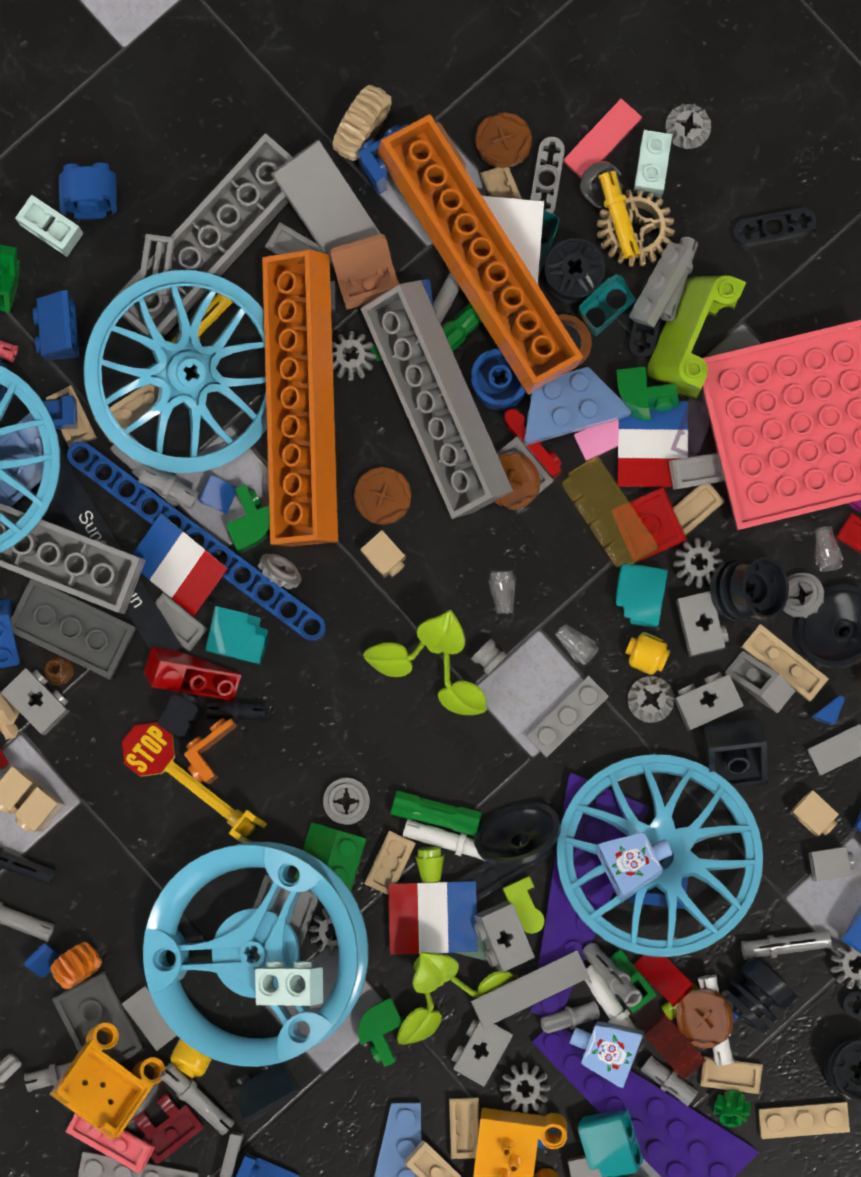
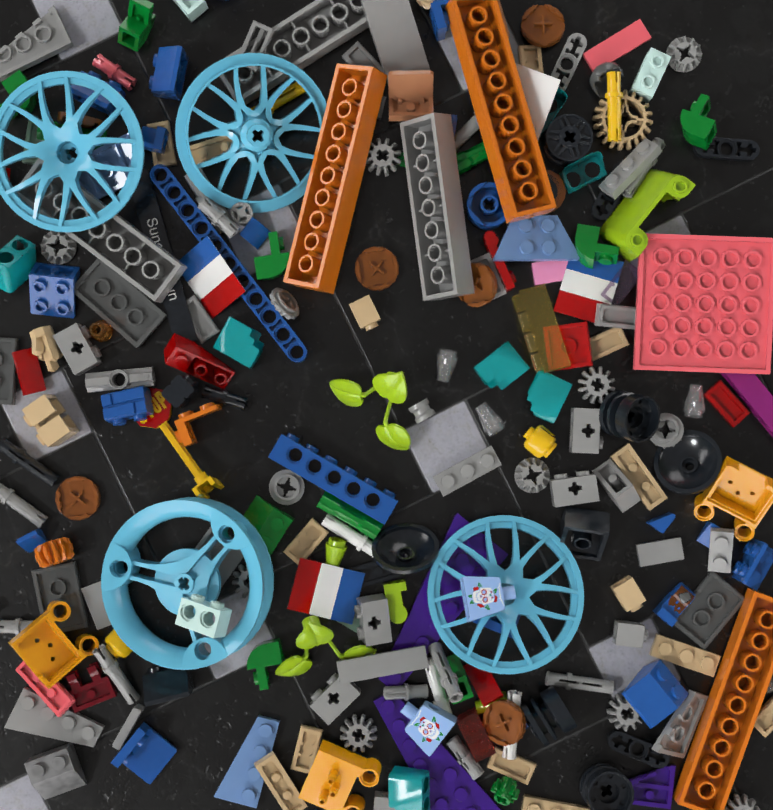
camera: 10 degrees right, 5 degrees up
(82, 732) = (106, 380): none -> light grey piece
(86, 890) = (78, 498): none -> dark orange tile
(118, 753) = (127, 405): none -> blue brick
(194, 474) = (237, 214): none -> light grey wheel
(327, 761) = (281, 455): none -> blue brick
(573, 574) = (501, 367): none -> teal piece
(728, 210) = (696, 126): none -> green brick

